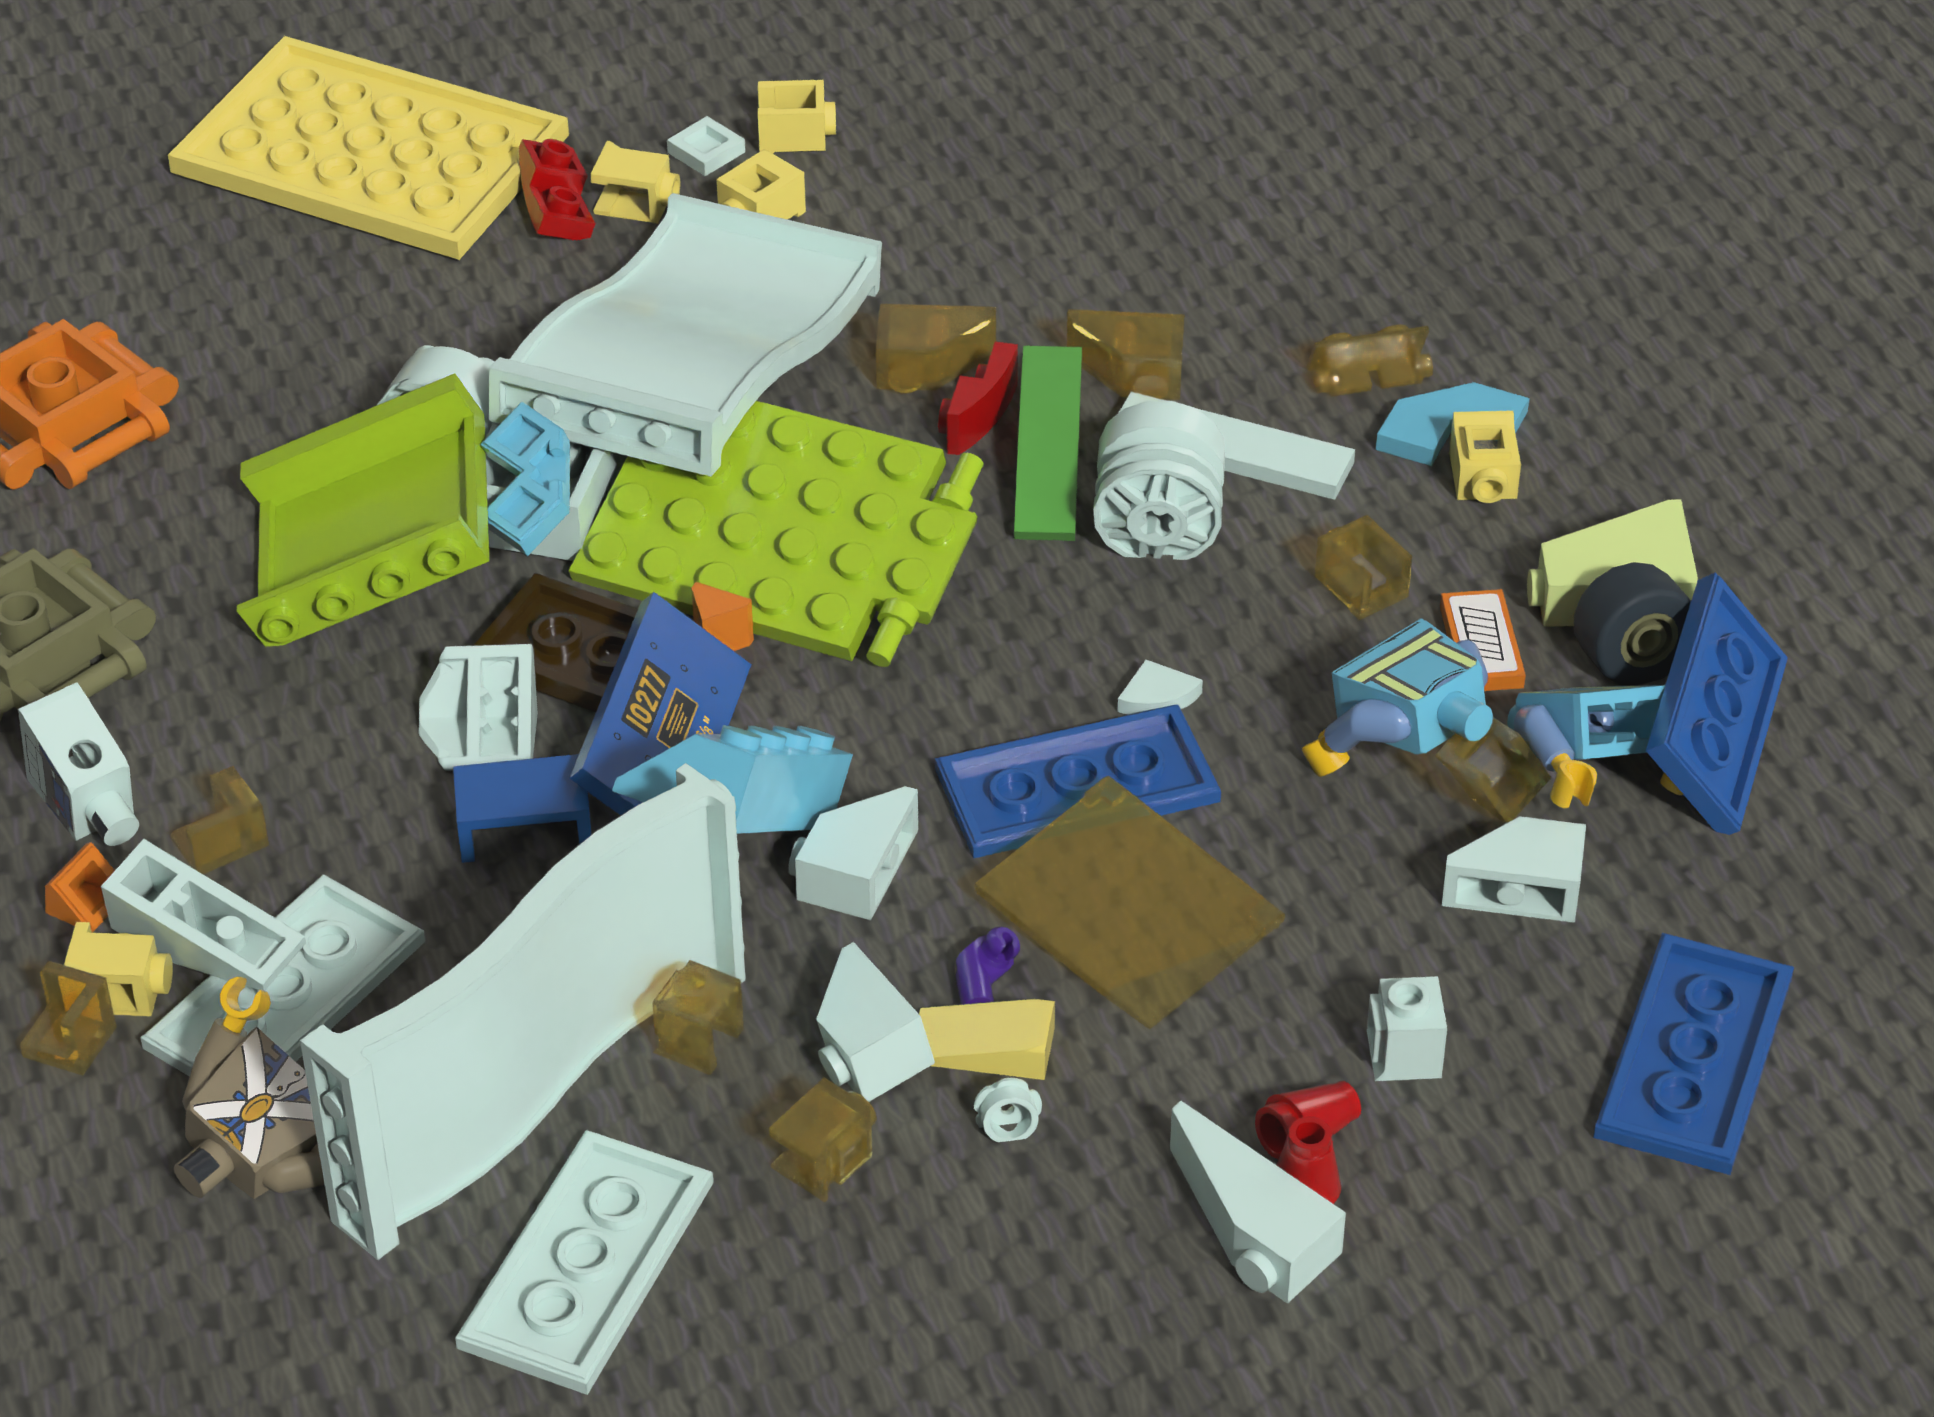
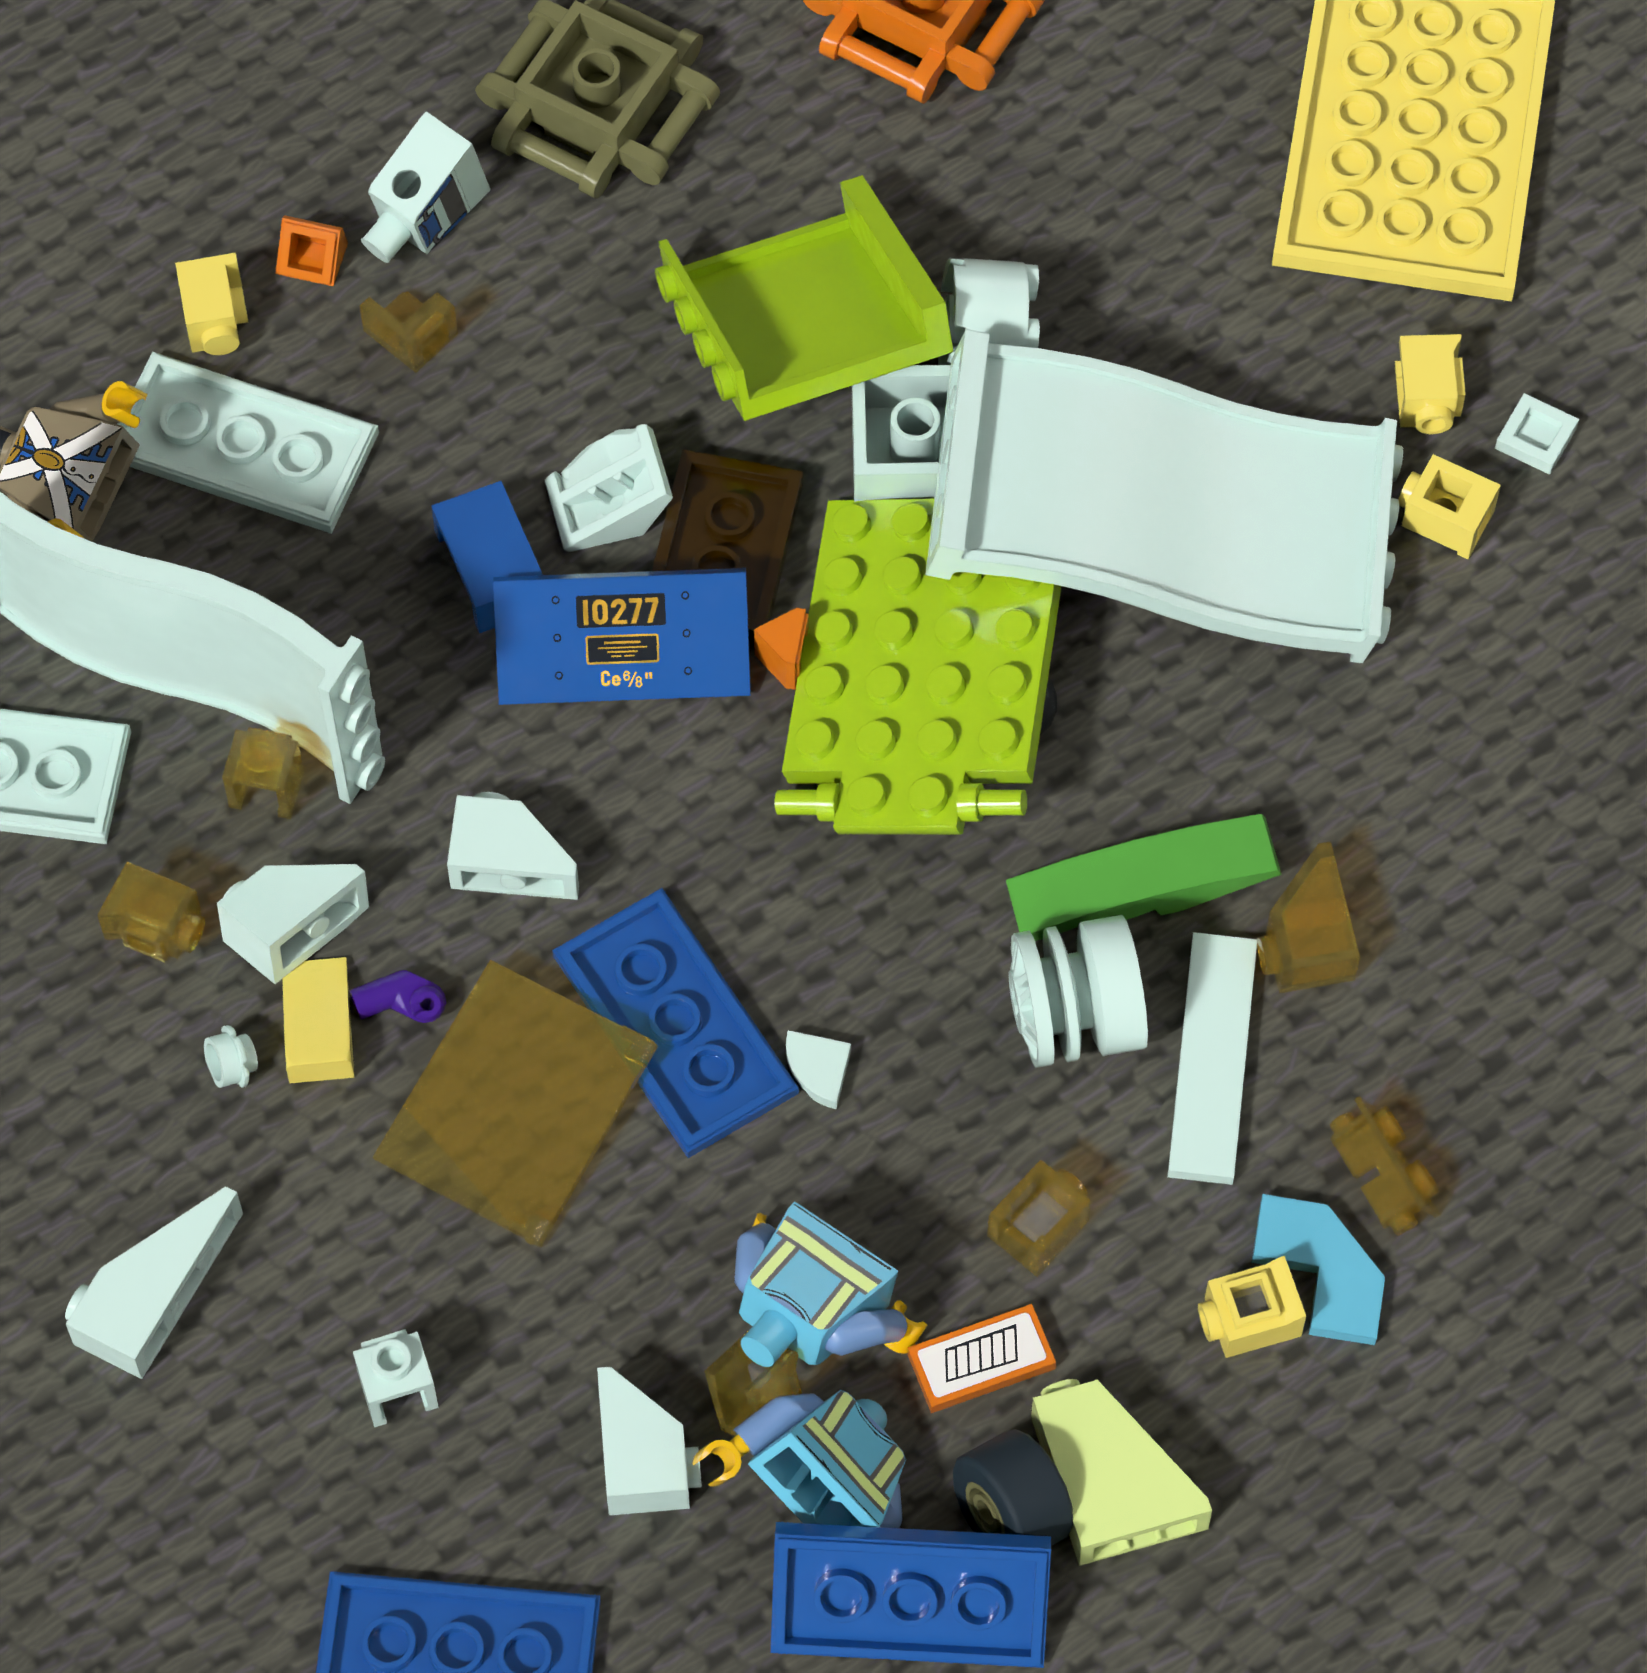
camera: 75 degrees right, 20 degrees up
(74, 1022) = (146, 295): clear yellow panel -> none
(197, 919) = (267, 343): light aqua slope -> none
(540, 493) = (846, 433): medium azure tile -> none
(553, 189) = (1401, 308): red slope -> none
(776, 776) = (496, 719): medium azure slope -> none
(794, 116) = (1600, 507): light yellow window -> none
(931, 344) = (1256, 726): clear yellow slope -> none
(979, 399) = (1167, 794): red slope -> none
(1311, 1157) = (204, 1325): red cone -> none
(1332, 1103) = (277, 1313): red cone -> none

